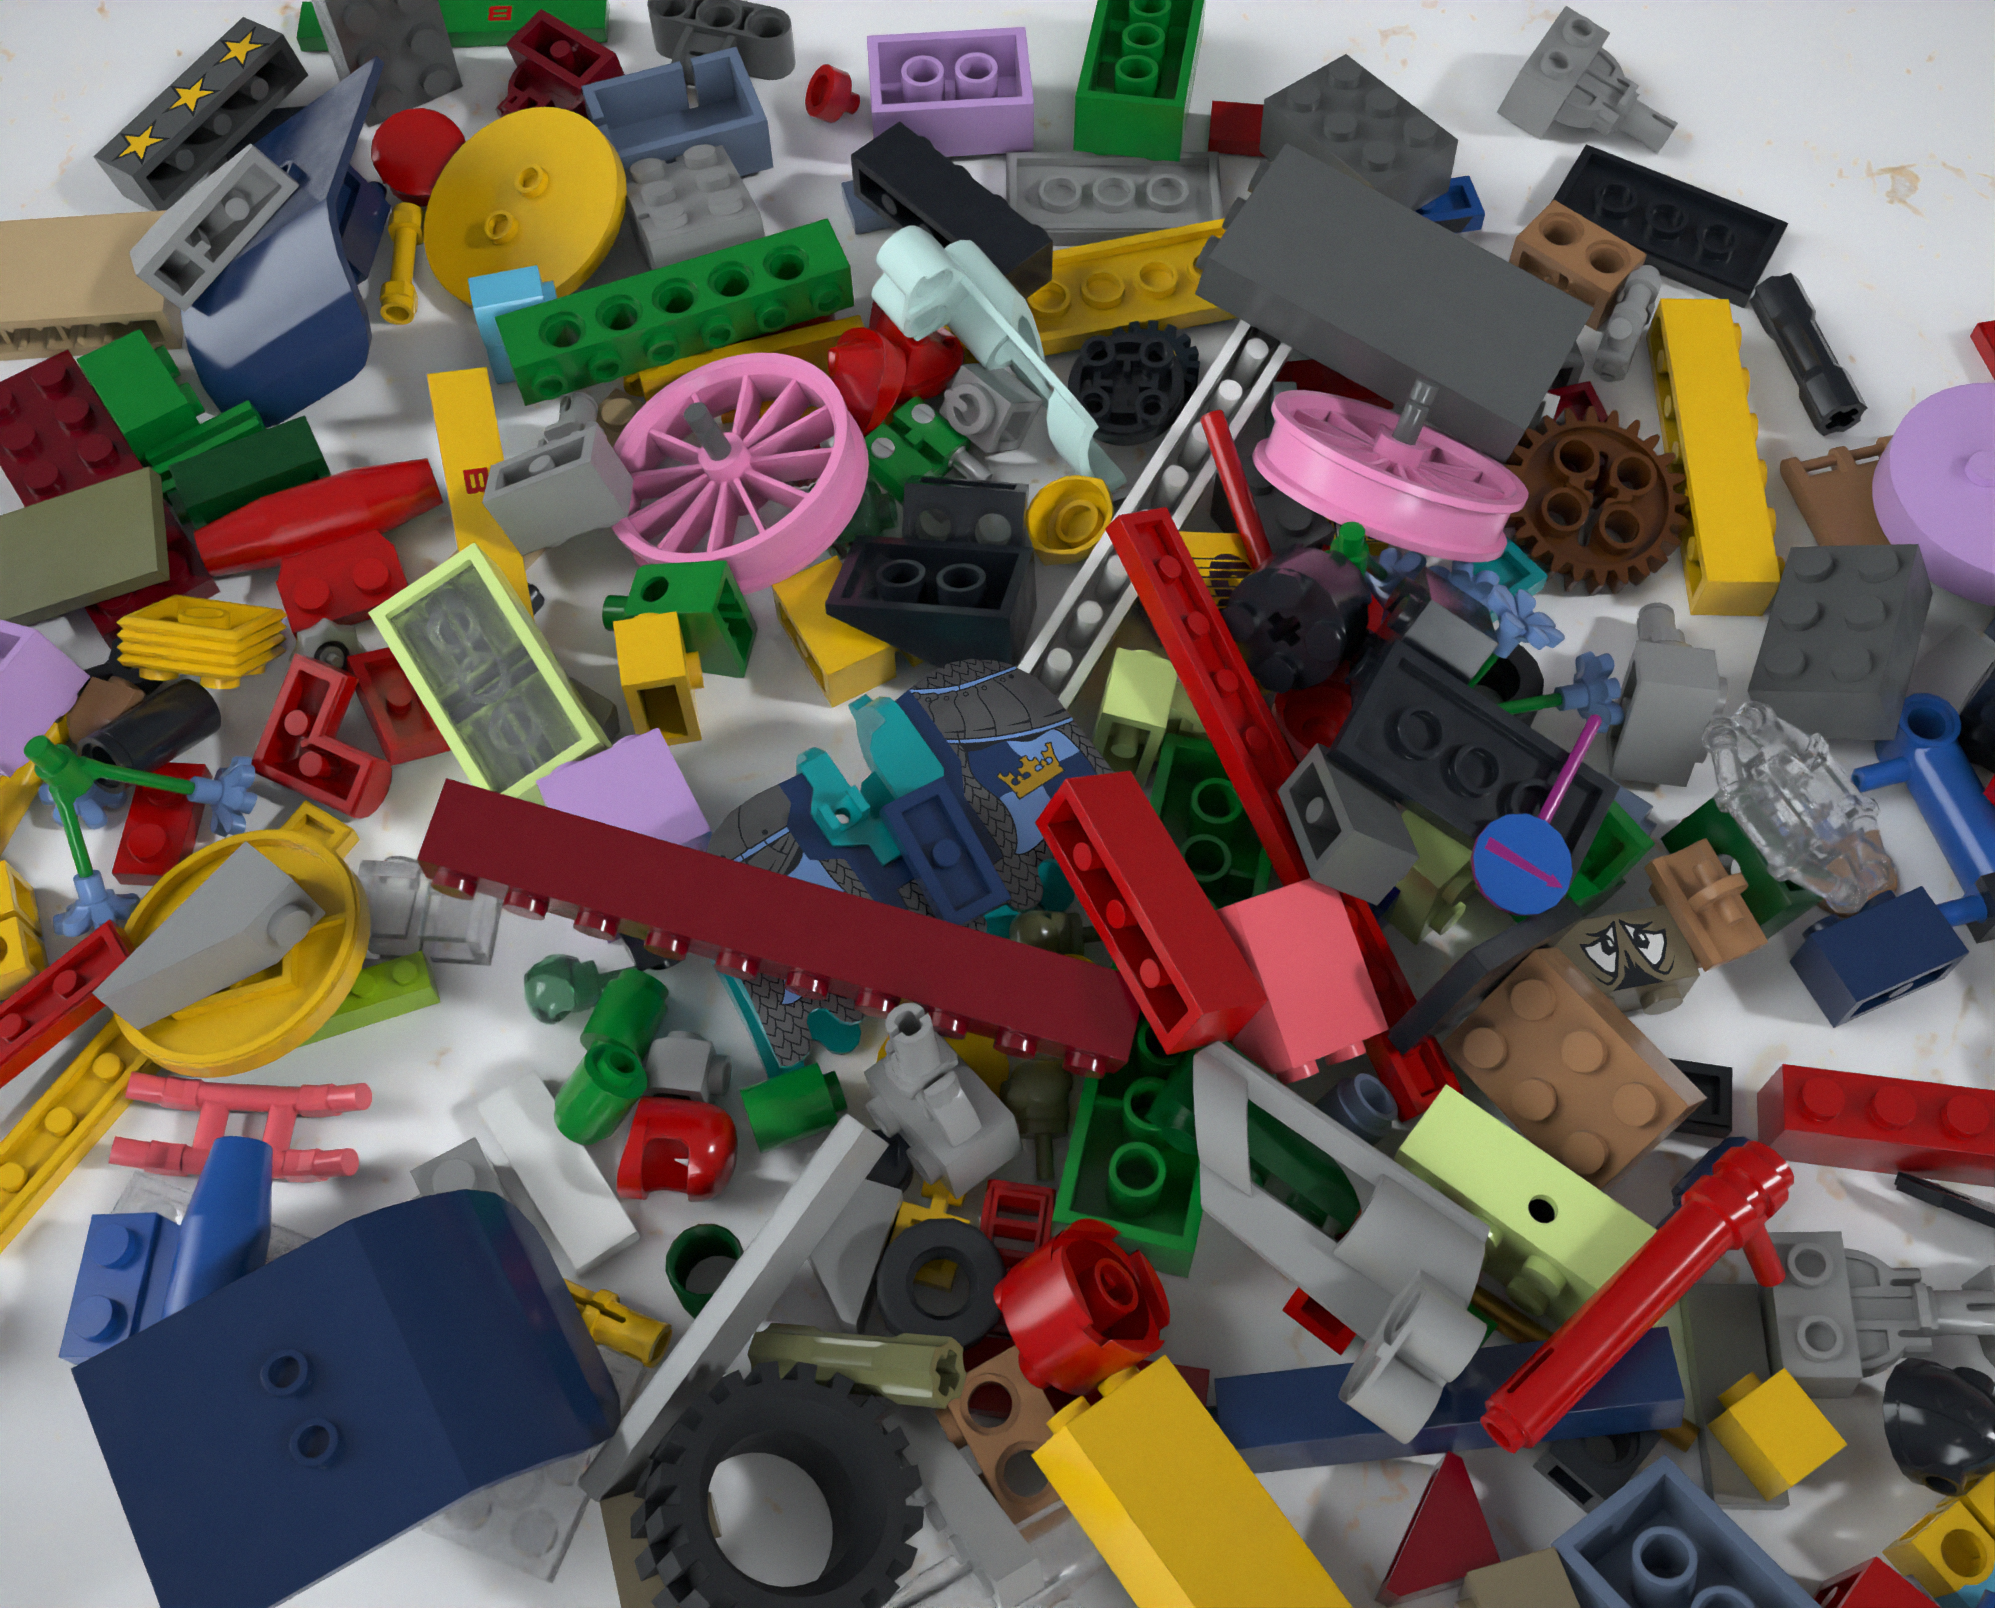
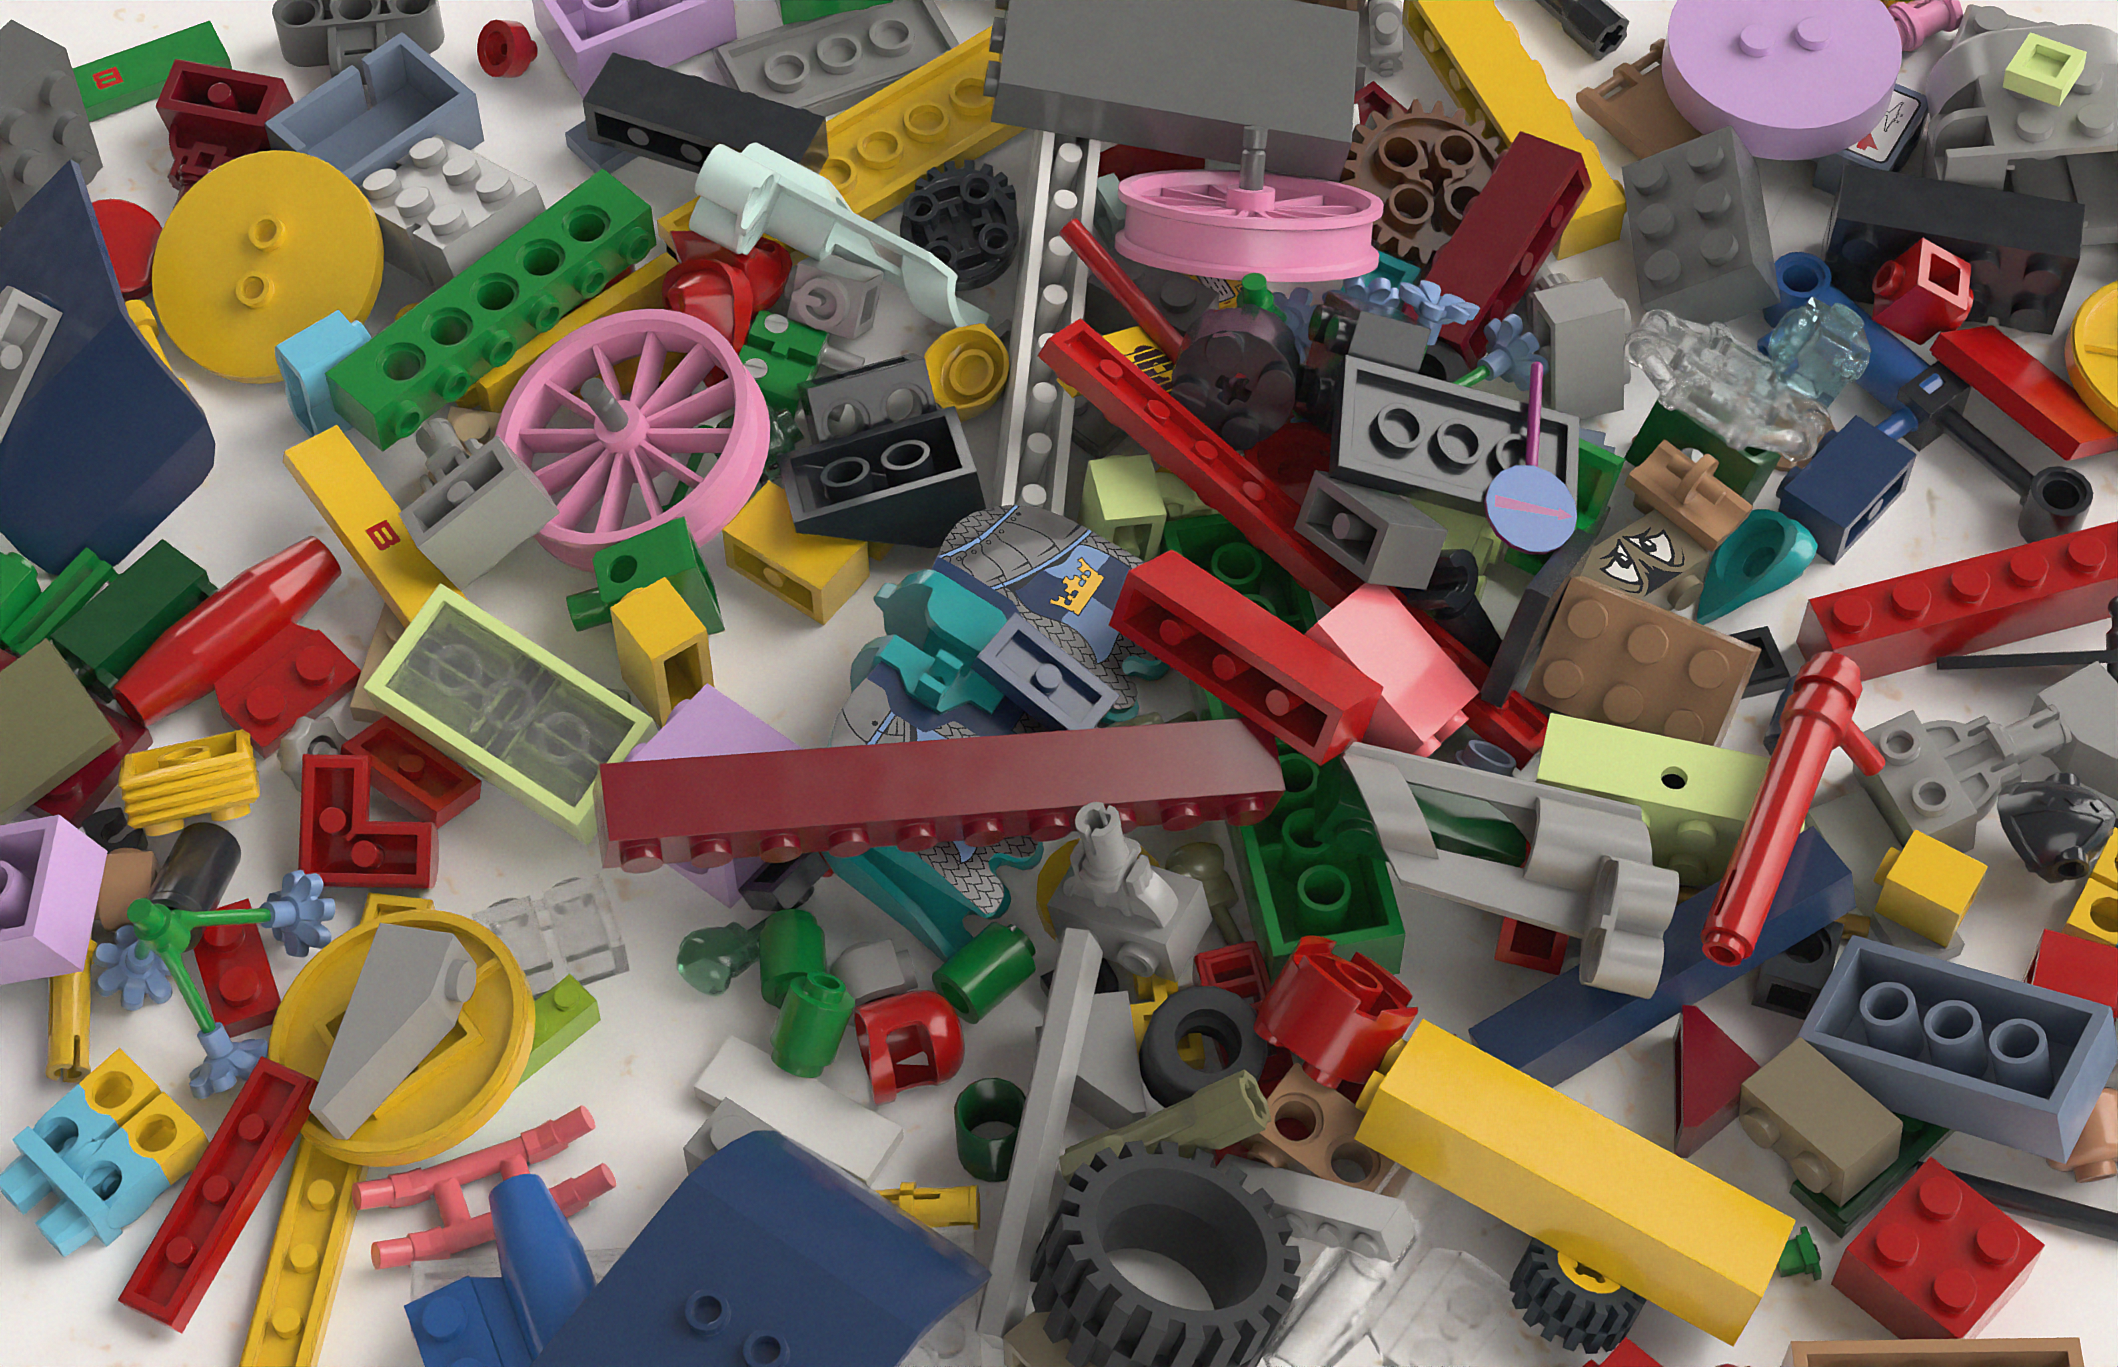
camera: 25 degrees left, 5 degrees down
(1410, 929) = (1456, 605): none -> black piece
(1639, 576) = (1507, 236): none -> dark red brick
(1748, 998) = (1755, 561): none -> teal piece
(1912, 804) = (1819, 349): none -> clear light blue brick

